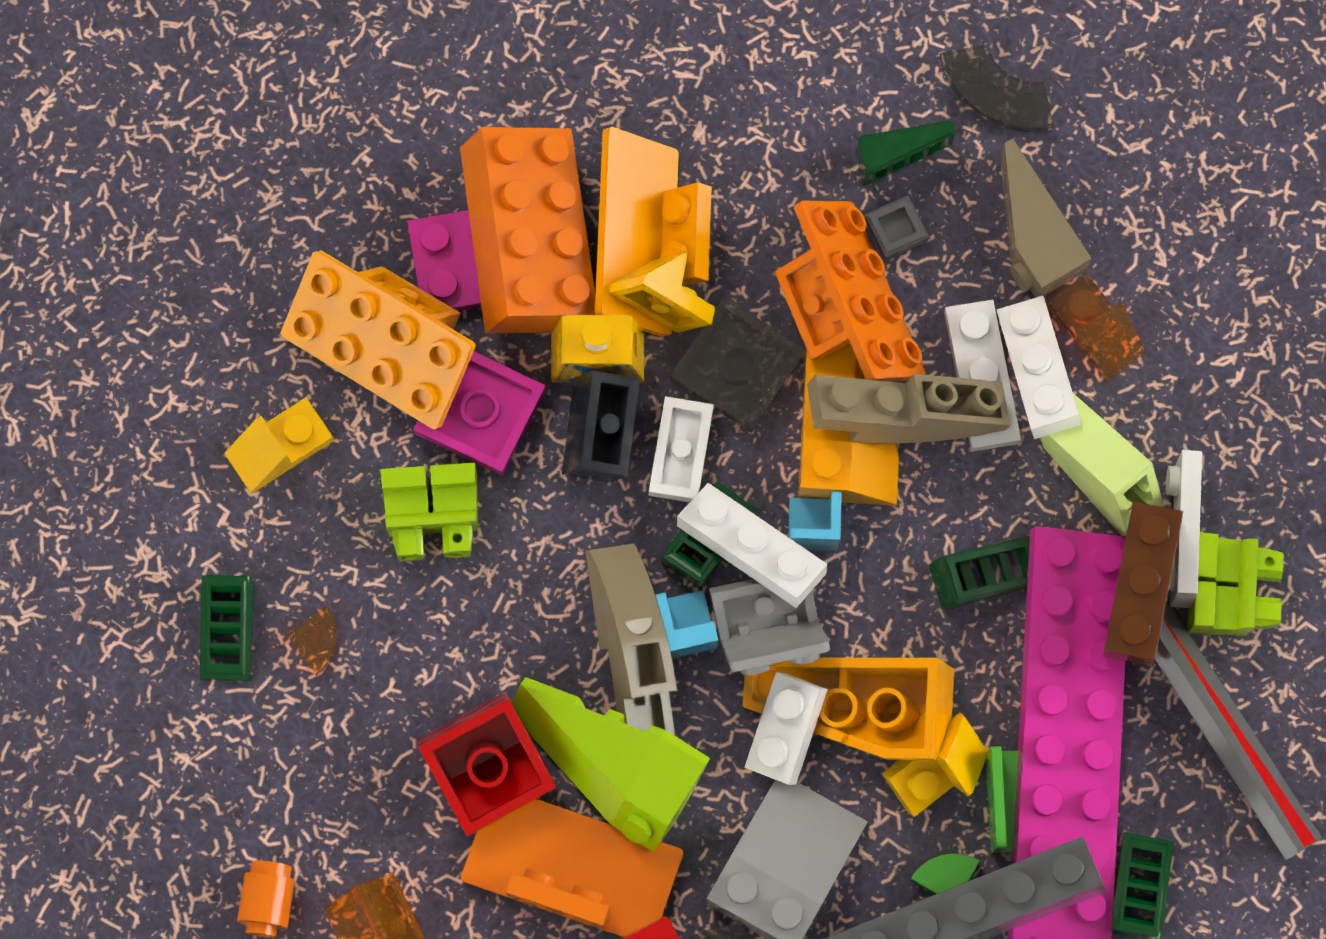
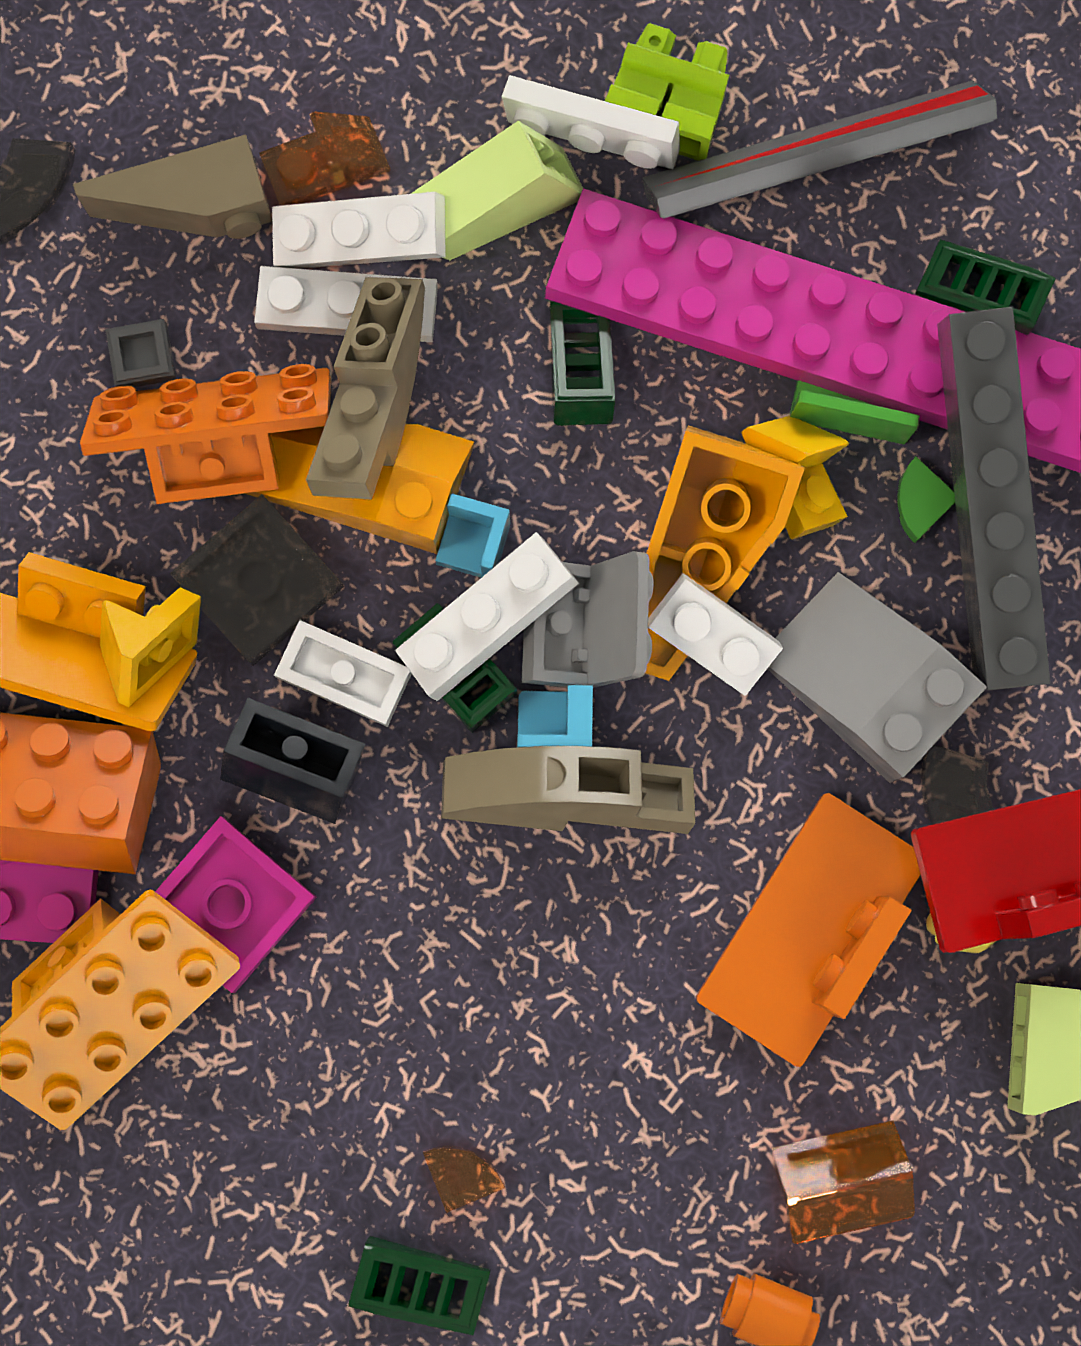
camera: 75 degrees left, 5 degrees up
(277, 446) = (204, 1167): yellow slope -> none
(409, 508) = (332, 1022): lime hips -> none
(486, 763) = (671, 1004): red slope -> none
(596, 344) = (190, 743): yellow torso -> none
(627, 773) = (732, 833): lime wedge -> none
(895, 149) = (45, 330): dark green slope -> none
(1143, 584) = (655, 173): reddish brown brick -> none

